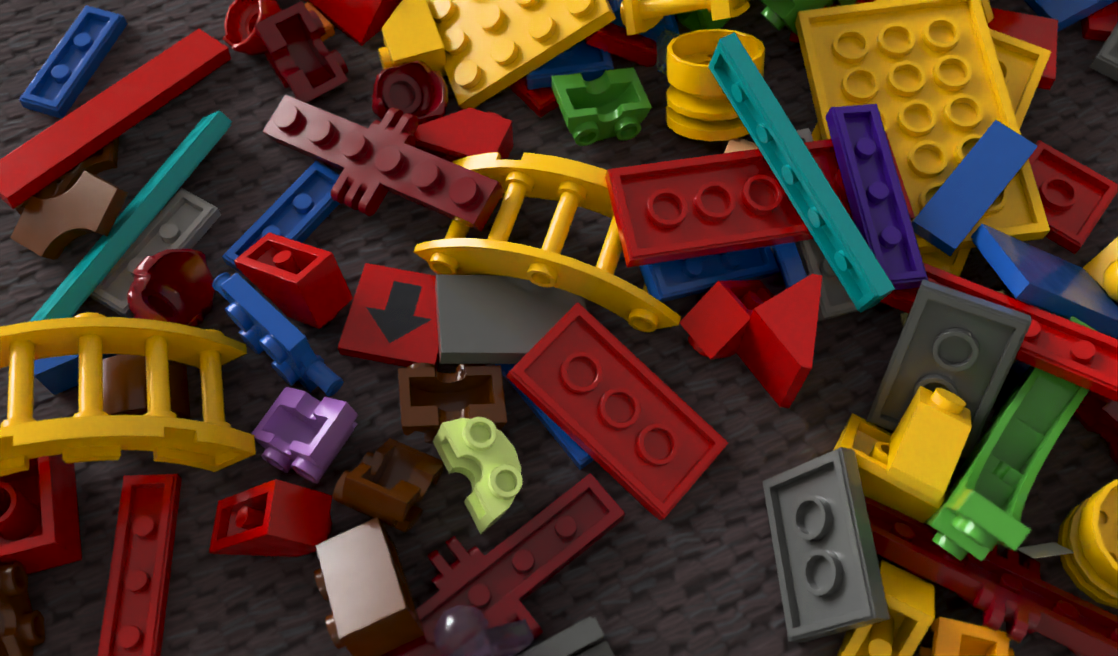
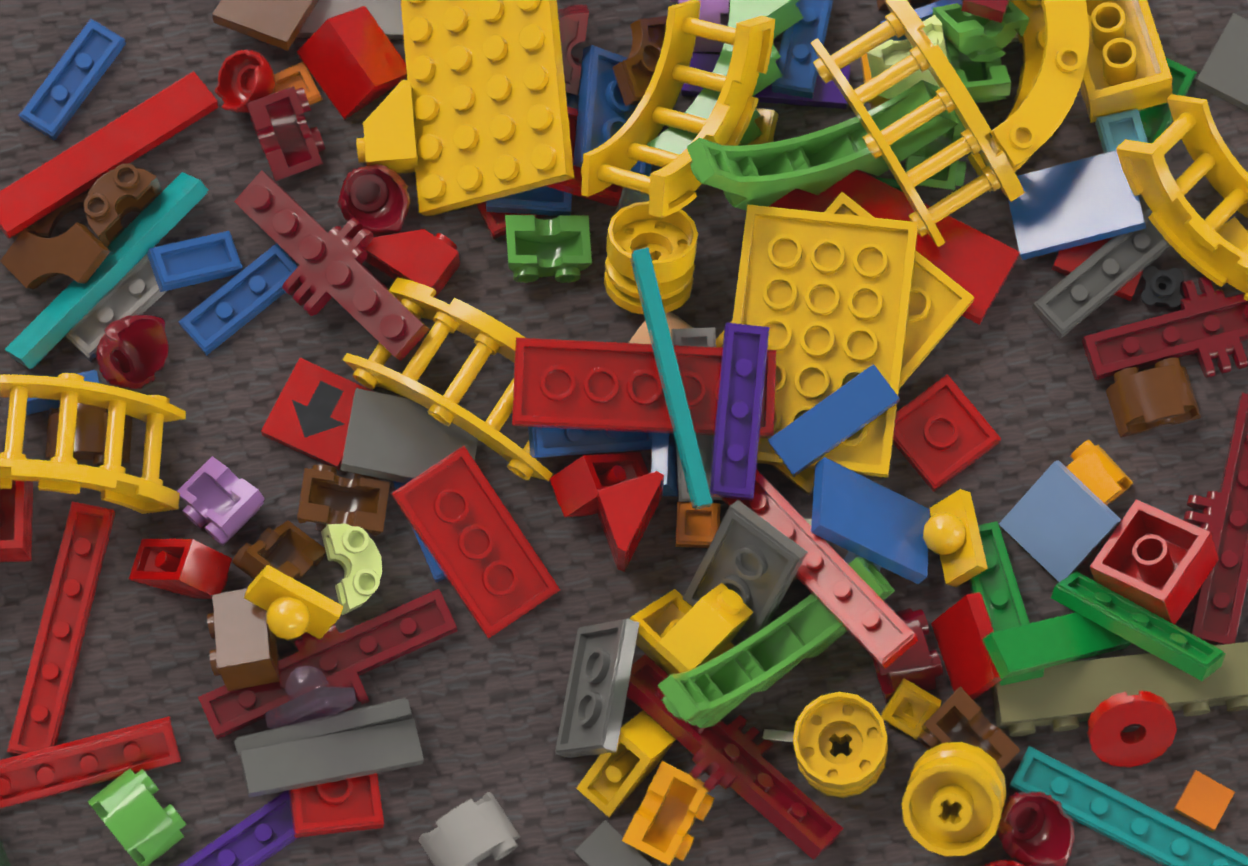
camera: 15 degrees right, 10 degrees up
(134, 145) = (115, 196): none -> reddish brown cylinder
(228, 193) = (194, 261): none -> blue tile
(269, 331) = (215, 424): blue plate -> none
(296, 278) = (237, 361): red slope -> none
(419, 531) = (292, 605): none -> yellow tile
(851, 339) = (698, 526): none -> orange tile

